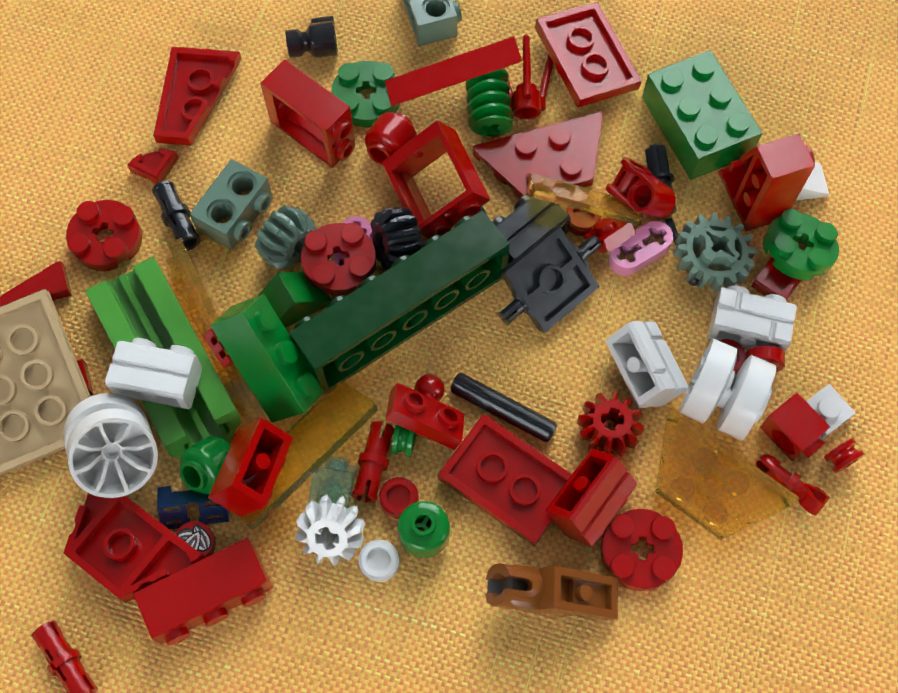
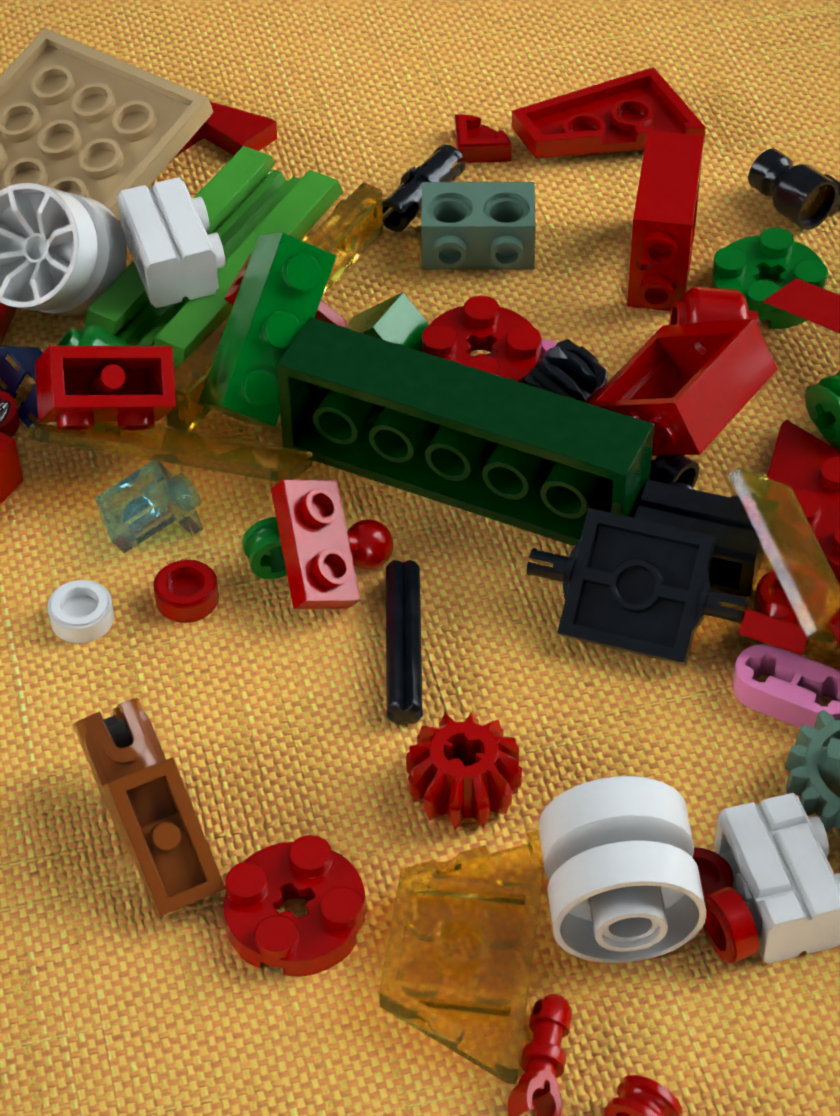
camera: 60 degrees right, 20 degrees down
(102, 215) = (319, 139): red plate -> none
(284, 237) = (463, 273): sand green gear -> none
(330, 530) = (81, 521): white gear -> none
(373, 462) = (206, 535): red pin -> none
(432, 539) = (148, 621): green head -> none
(505, 478) = (292, 693): red plate -> none
(591, 497) = (323, 788): red brick -> none
(646, 364) = (597, 741): white brick -> none
(795, 428) = (639, 1015): red brick -> none
(831, 408) = (710, 1063): white plate -> none

